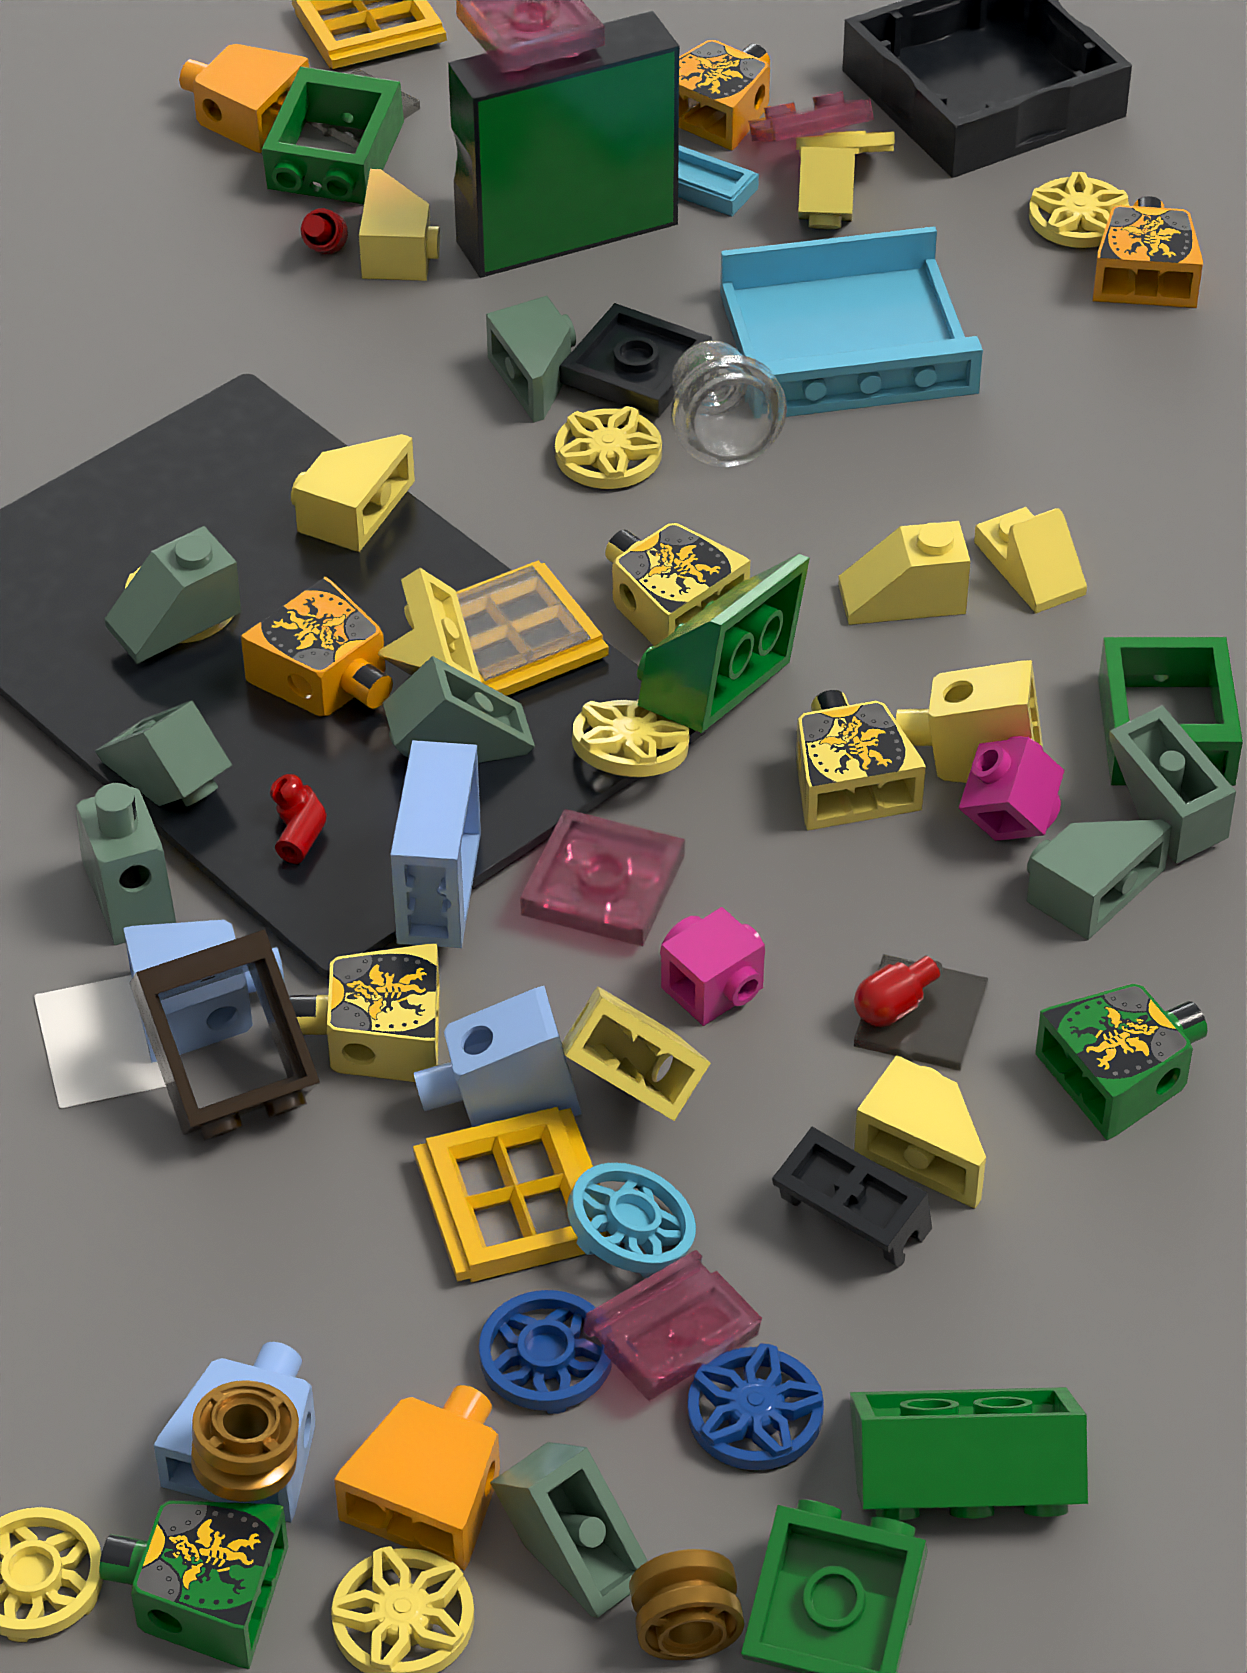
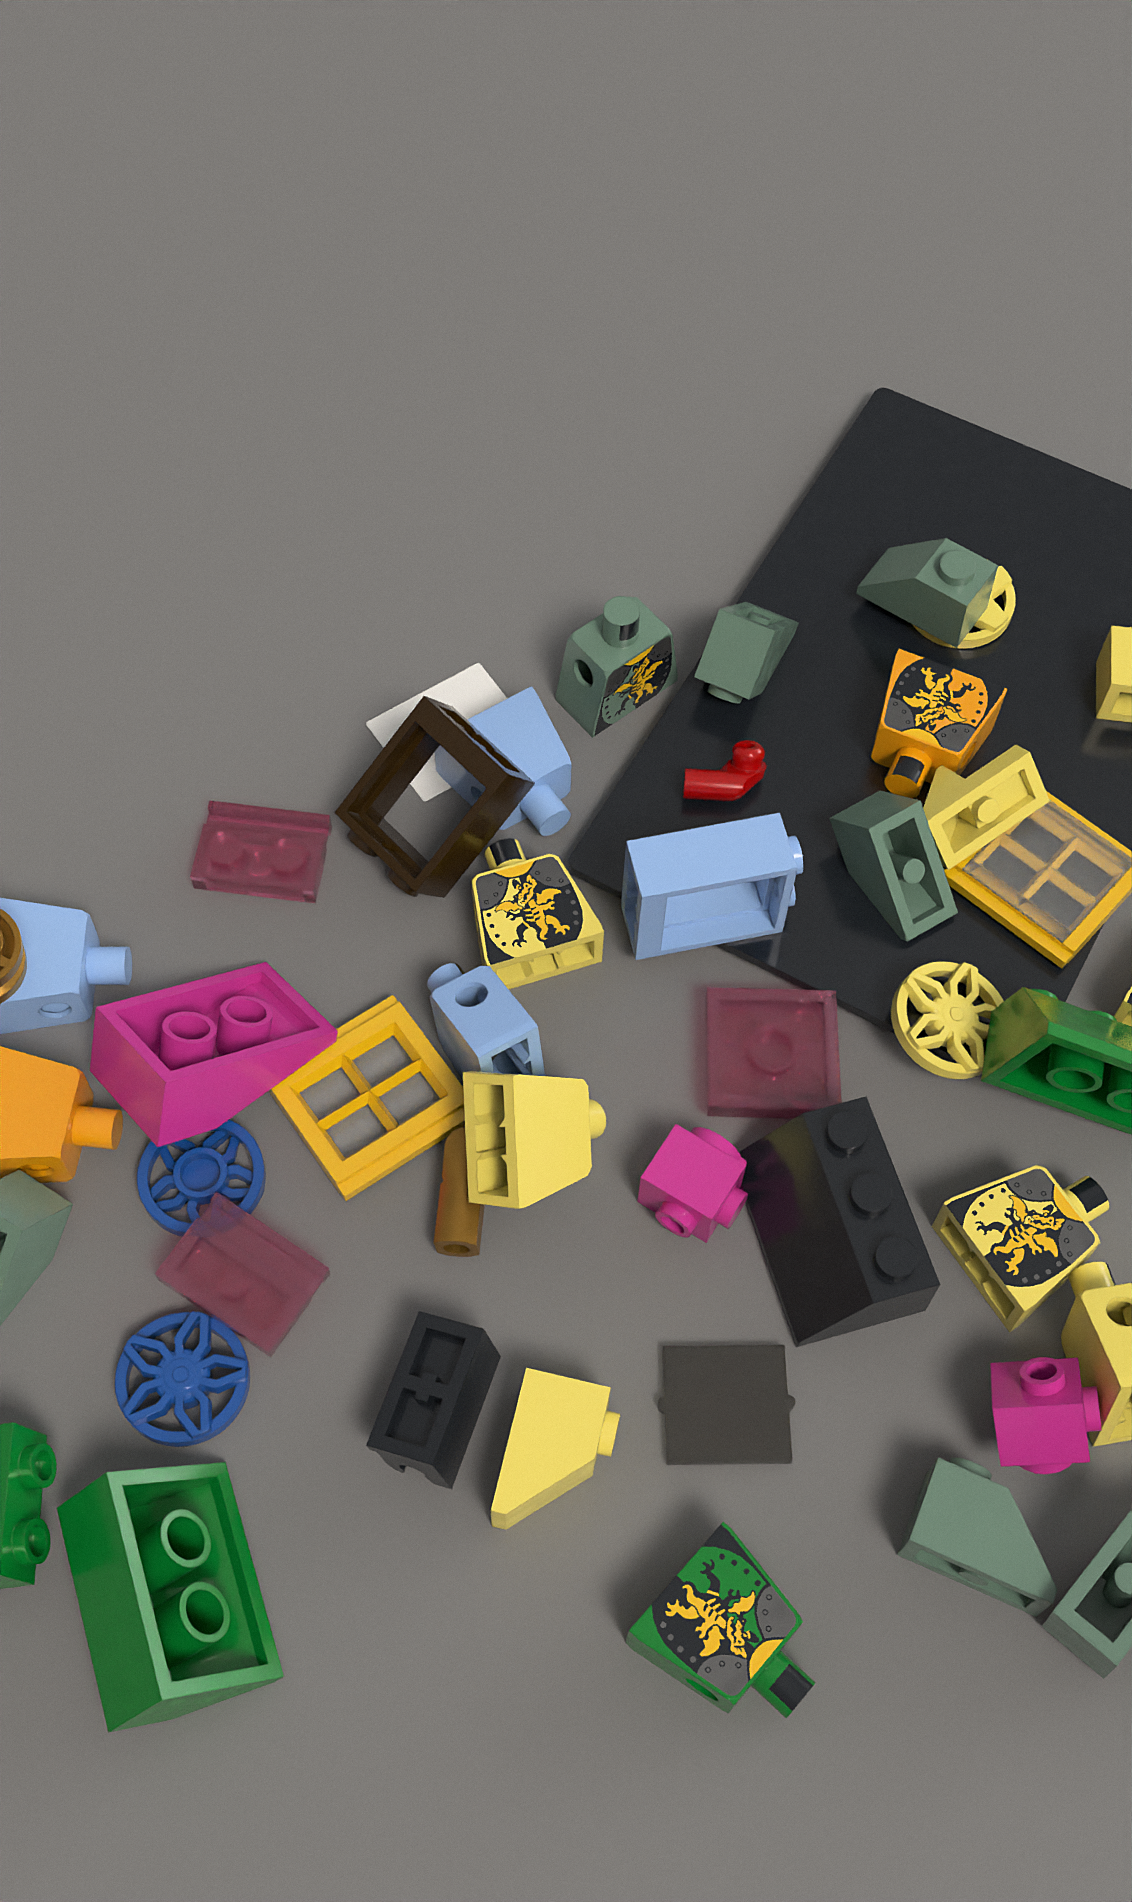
camera: 70 degrees right, 15 degrees up
(185, 1225) = (261, 852): none -> clear pink plate
(419, 1299) = (204, 1049): none -> dark pink slope
(630, 1218) = (354, 1200): medium azure wheel -> none
(652, 1140) = (457, 1221): none -> pearl gold bar
(794, 872) = (836, 1224): none -> black slope
(894, 991) = (720, 1366): red cylinder -> none

